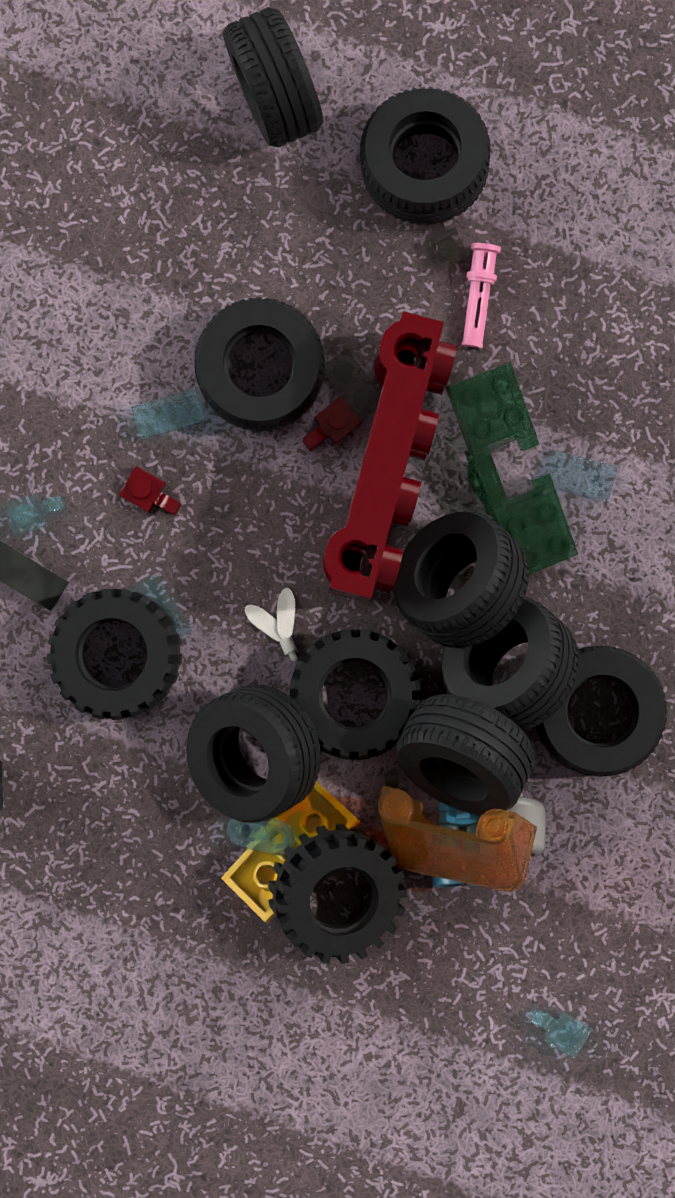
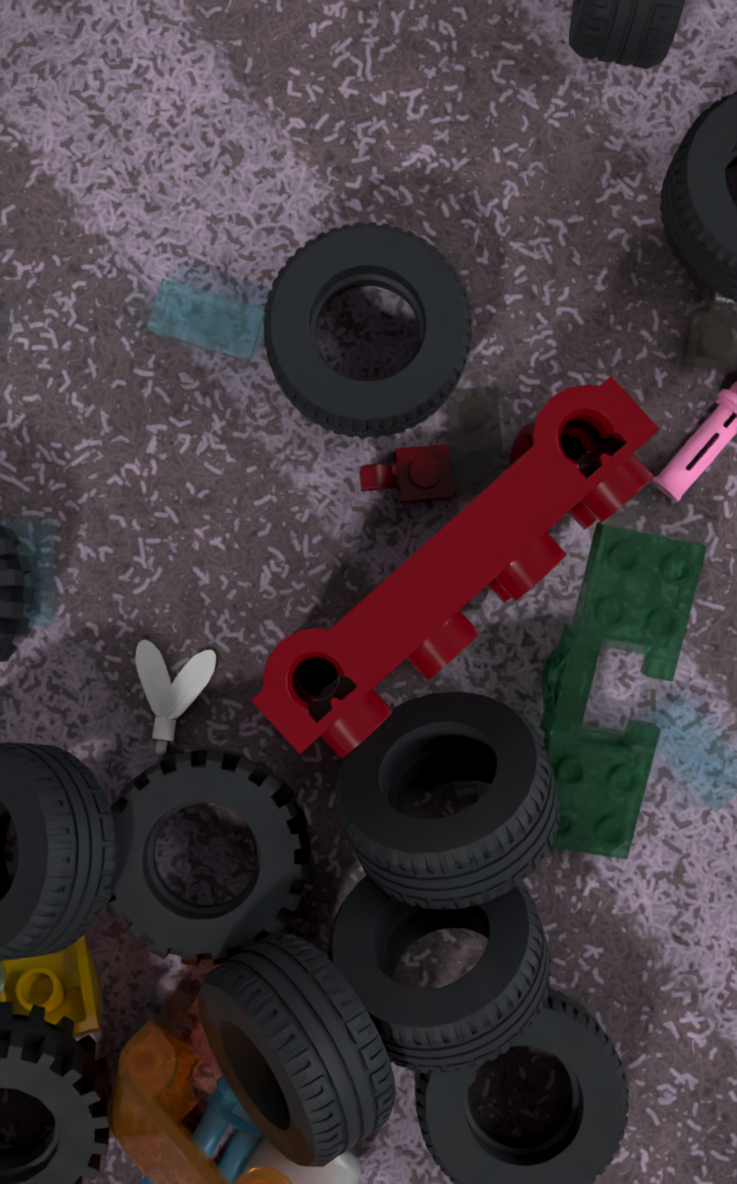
camera: 30 degrees right, 0 degrees up
(146, 491) = (111, 404): dark red plate -> none

